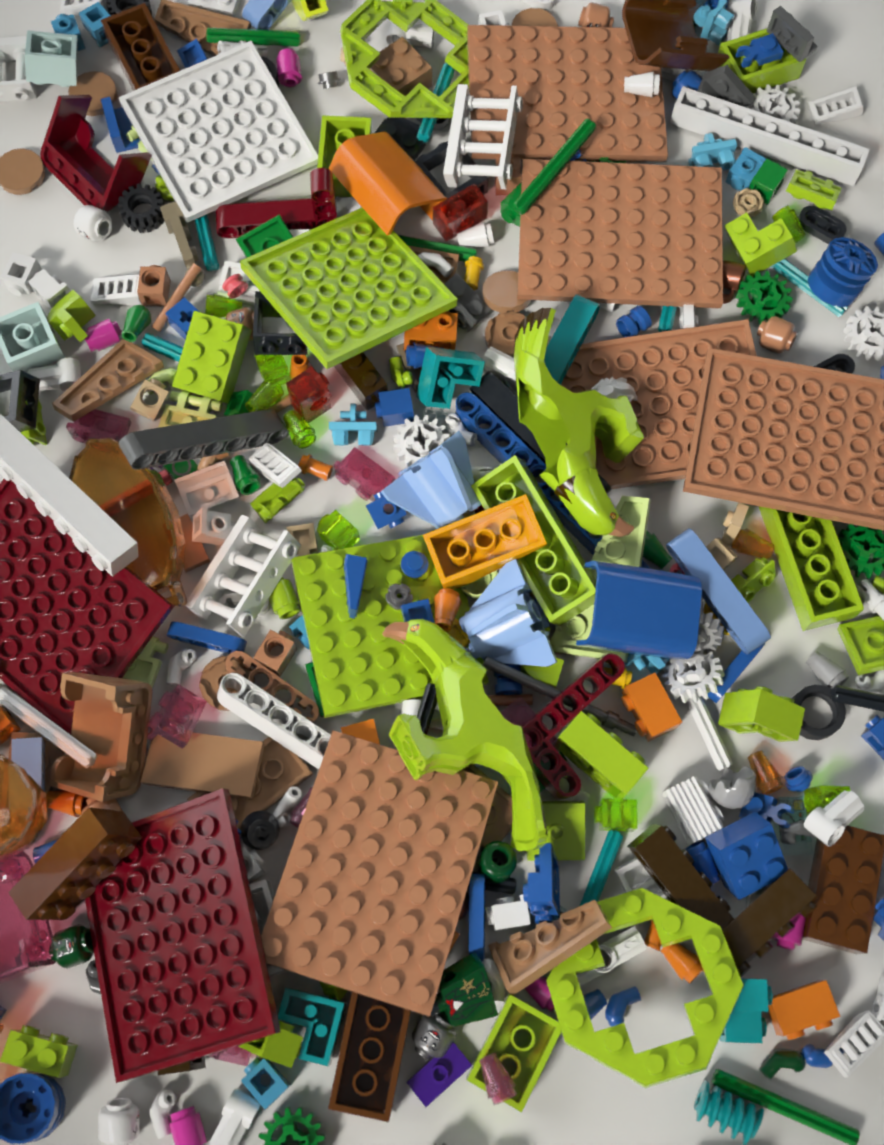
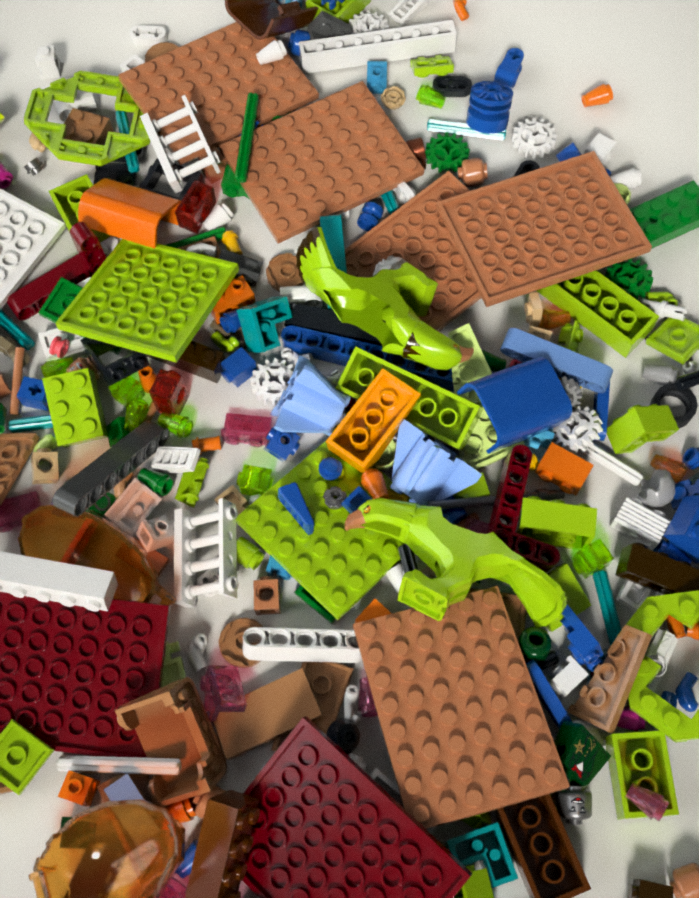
camera: 30 degrees left, 5 degrees down
(180, 414) = (75, 465): yellowish green plate -> none
(205, 638) = (206, 618): blue beam -> none
(275, 682) = (281, 619): nougat beam -> none
(365, 429) = (208, 406): medium azure hips -> none
(438, 1075) = (597, 831): dark purple plate -> none
(501, 292) = (263, 246): medium nougat tile -> none
(595, 16) = (203, 27): nougat head -> none
(713, 151) = (347, 75): medium azure hips -> none
(762, 247) = (421, 121): lime brick -> none
(768, 179) = (397, 74): green brick -> none

